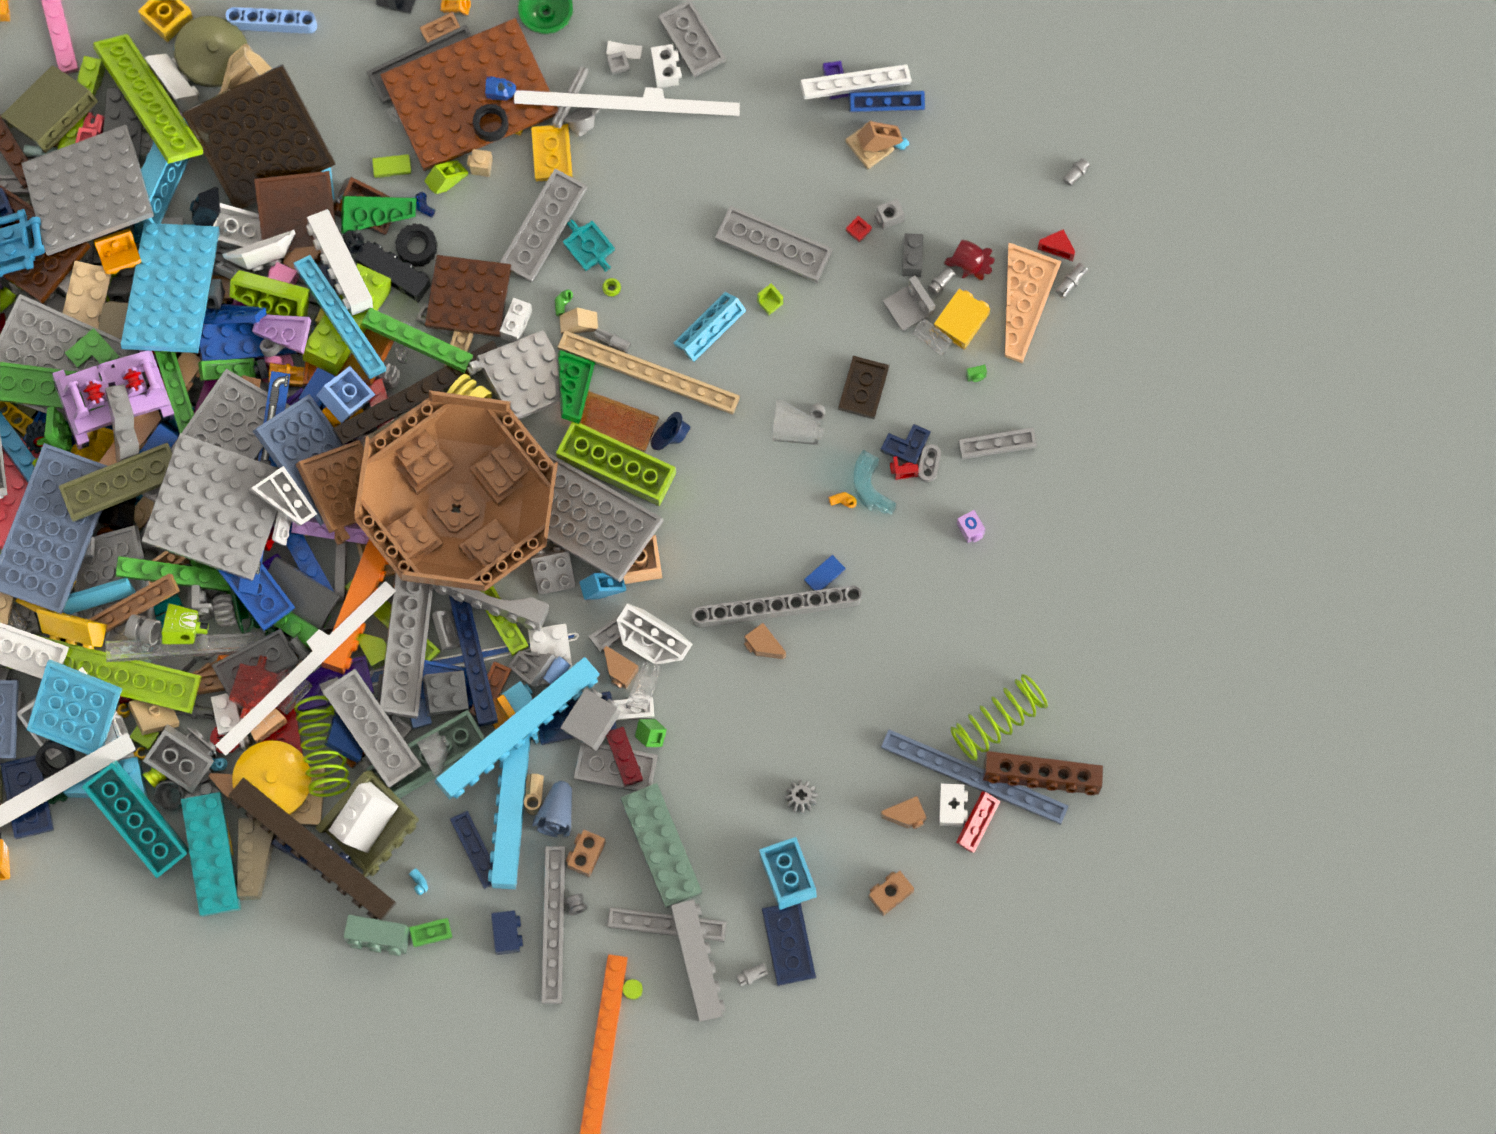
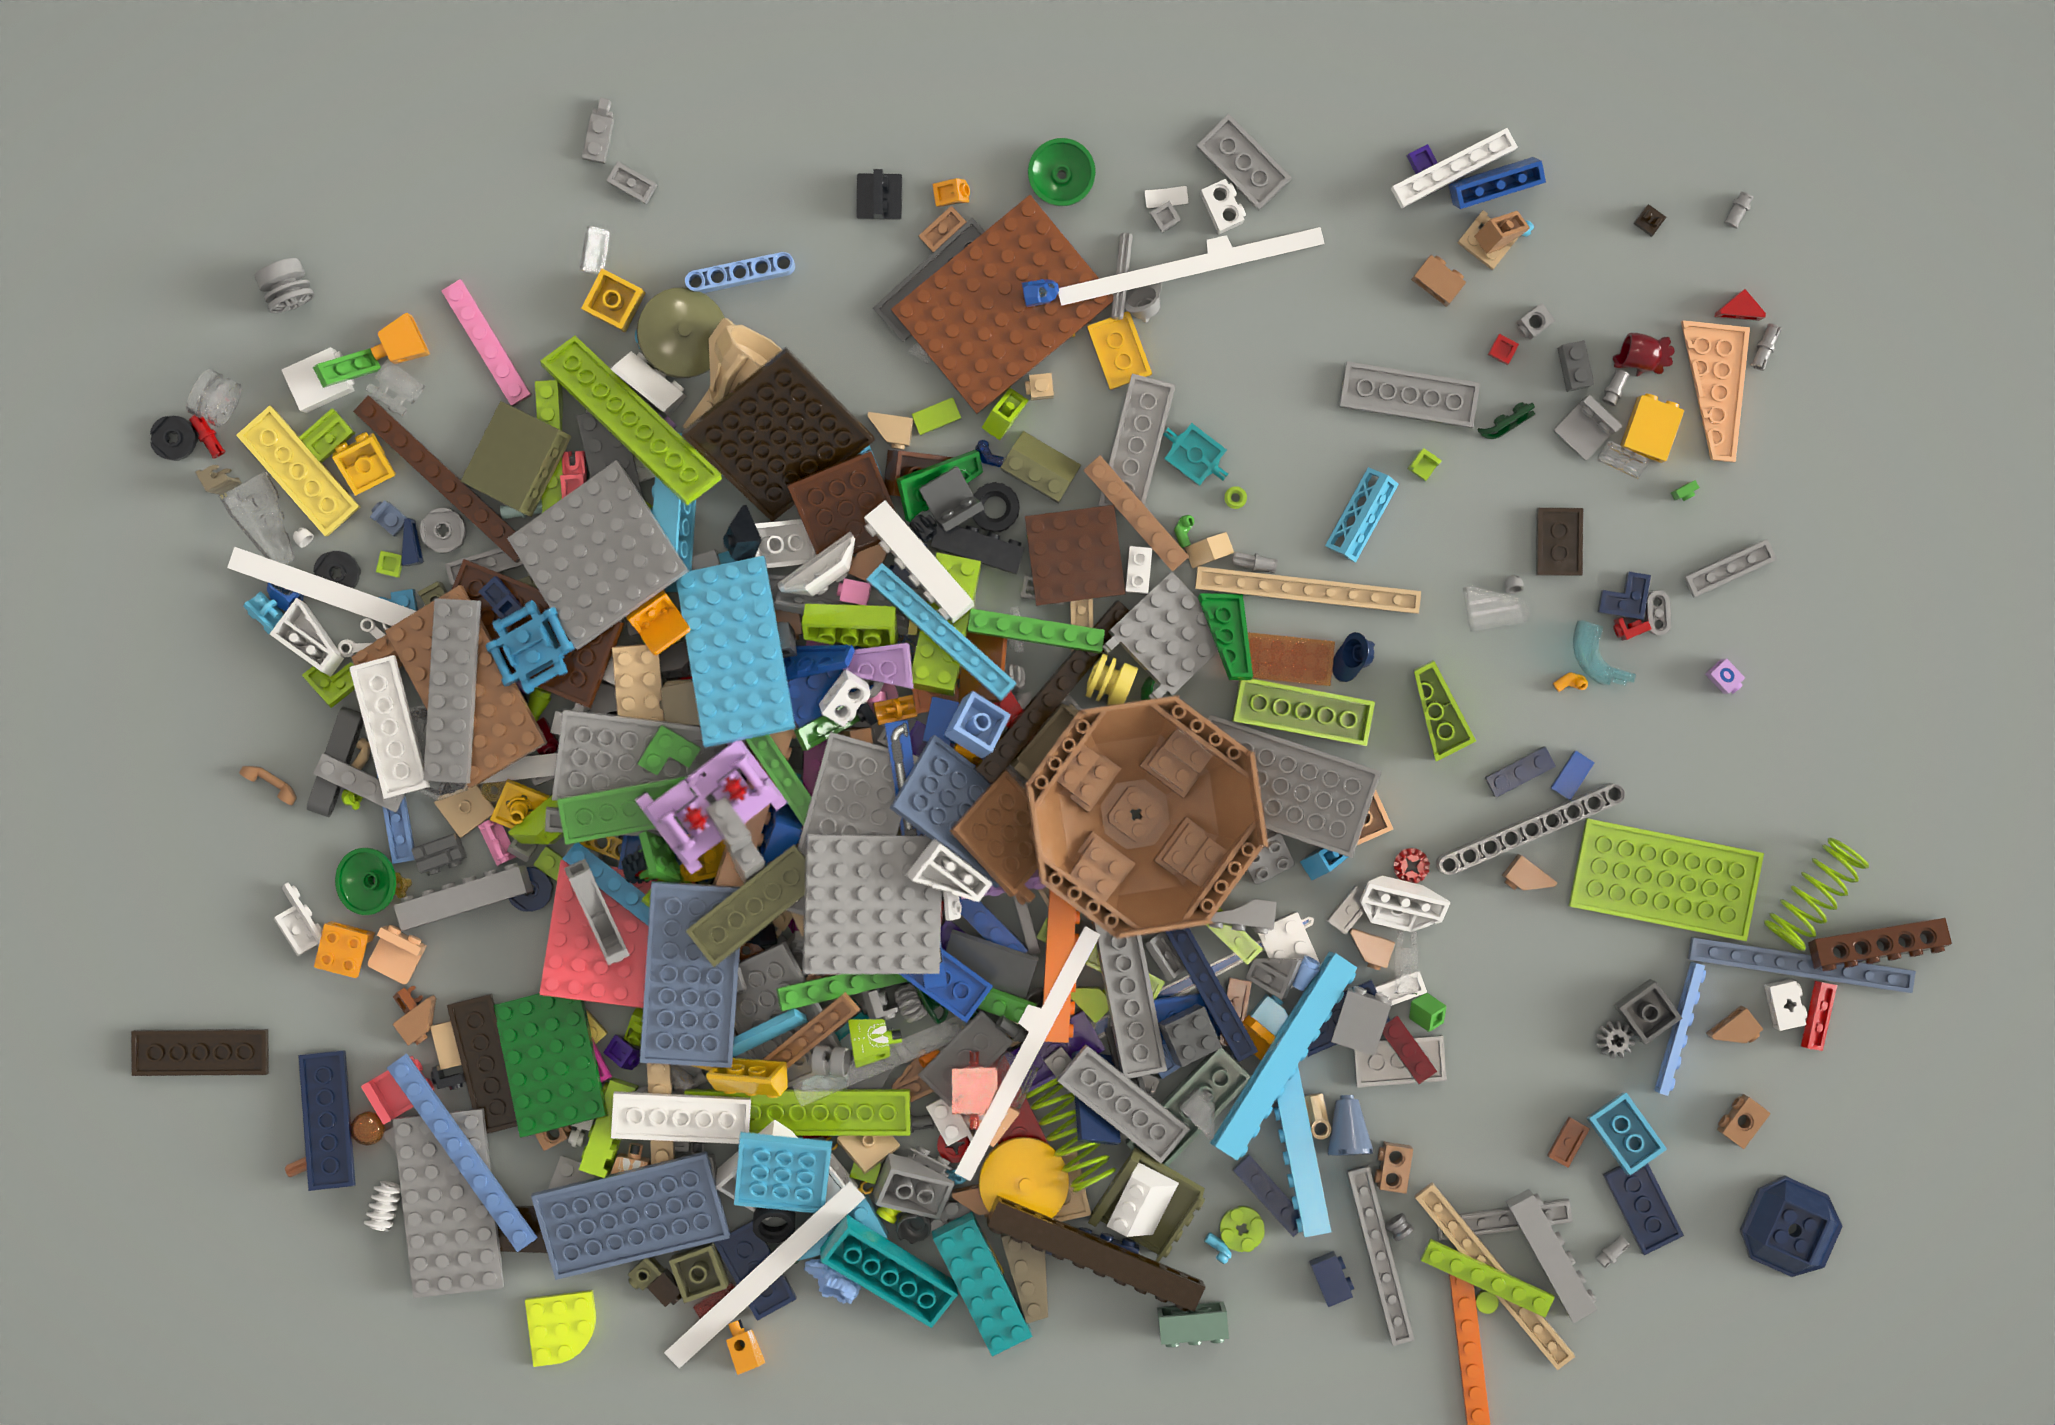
camera: 15 degrees left, 15 degrees up
(89, 818) = (832, 1282): none -> light blue piece
(243, 343) = (839, 695): none -> white brick
(354, 164) = (894, 429): none -> tan slope
(380, 222) = (950, 499): none -> dark grey bracket
(431, 932) = (1248, 1300): bright green plate -> none
(455, 871) = (1254, 1225): none -> lime plate
(461, 224) = (1040, 467): none -> olive slope
(490, 109) = (1045, 321): black tyre -> none
(527, 276) = (1136, 513): none -> medium nougat plate
(637, 964) = (1487, 1278): none -> lime plate
(645, 967) = (1469, 1244): none -> tan plate
(661, 845) = (1477, 1139): sand green brick -> none
(680, 614) = (1401, 865): none -> red gear
(729, 500) = (1442, 715): none -> lime wedge
(738, 871) = (1568, 1142): none -> dark orange plate
(782, 560) = (1520, 772): none -> plate
(821, 163) = (1439, 280): none -> medium nougat brick
(833, 778) = (1648, 1011): none -> dark grey brick
(842, 284) = (1502, 422): none -> dark green piece
(863, 795) = (1678, 1037): none -> light blue plate
(879, 677) = (1666, 879): none -> lime plate
(904, 1014) = (1774, 1211): none -> dark blue piece
(1003, 162) = (1649, 220): none -> dark brown tile

